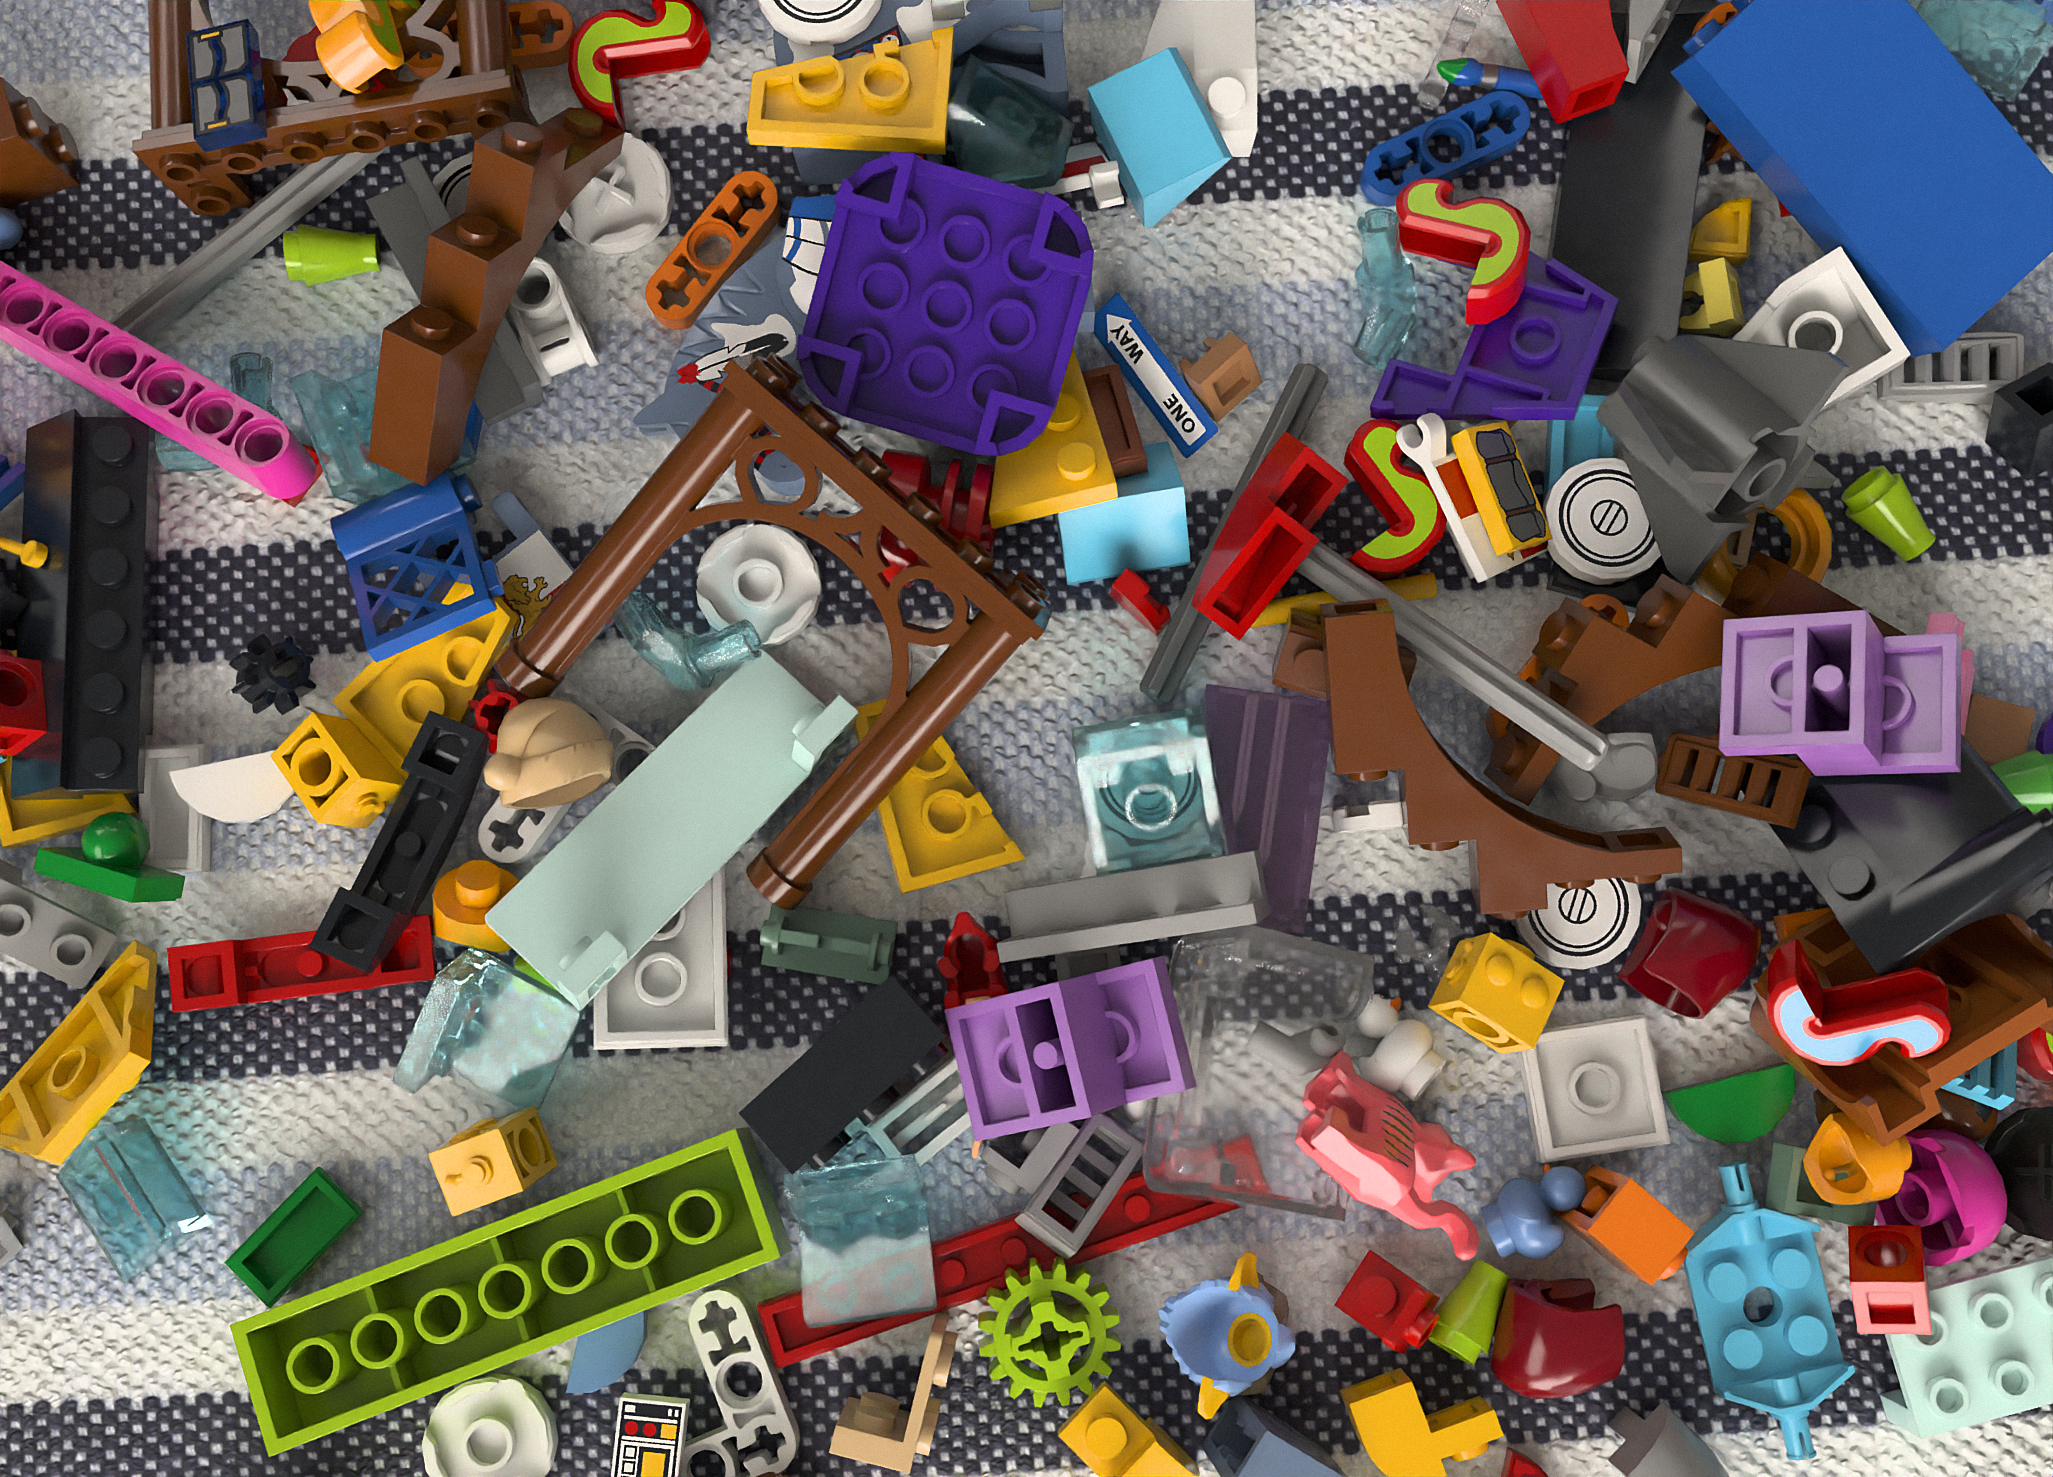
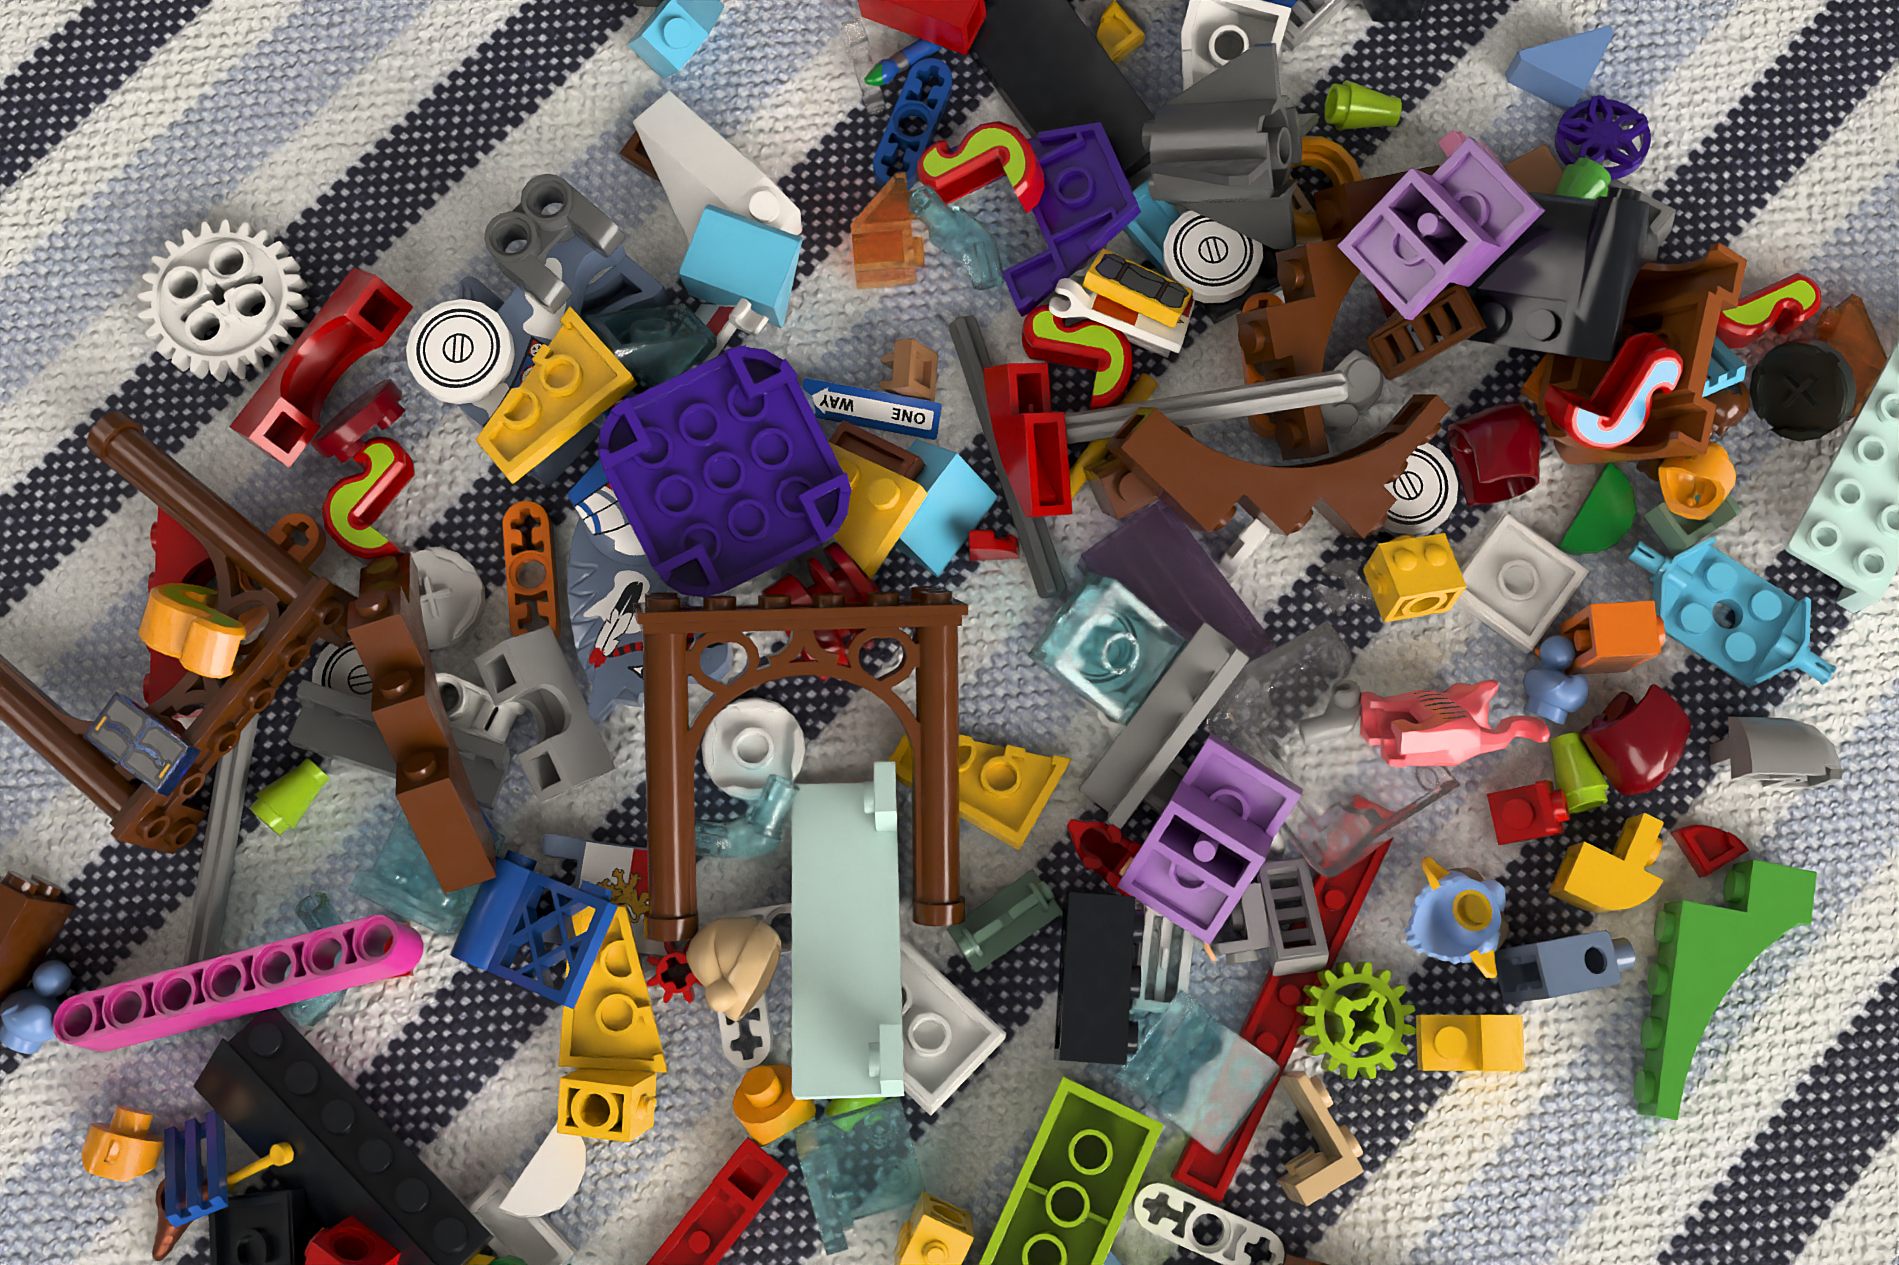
camera: 50 degrees left, 5 degrees down
(272, 674) = (504, 1086): black gear -> none
(410, 847) = (694, 1105): black slope -> none
(628, 340) = (536, 674): none -> light grey arch
(1312, 229) = (884, 241): none -> clear orange slope
(1405, 1055) = (1398, 663): white animal -> none
(1723, 307) = (1161, 78): light yellow tile -> none
(1889, 1279) = (1779, 528): red brick -> none
(1951, 1194) = (1767, 457): dark pink cylinder -> none

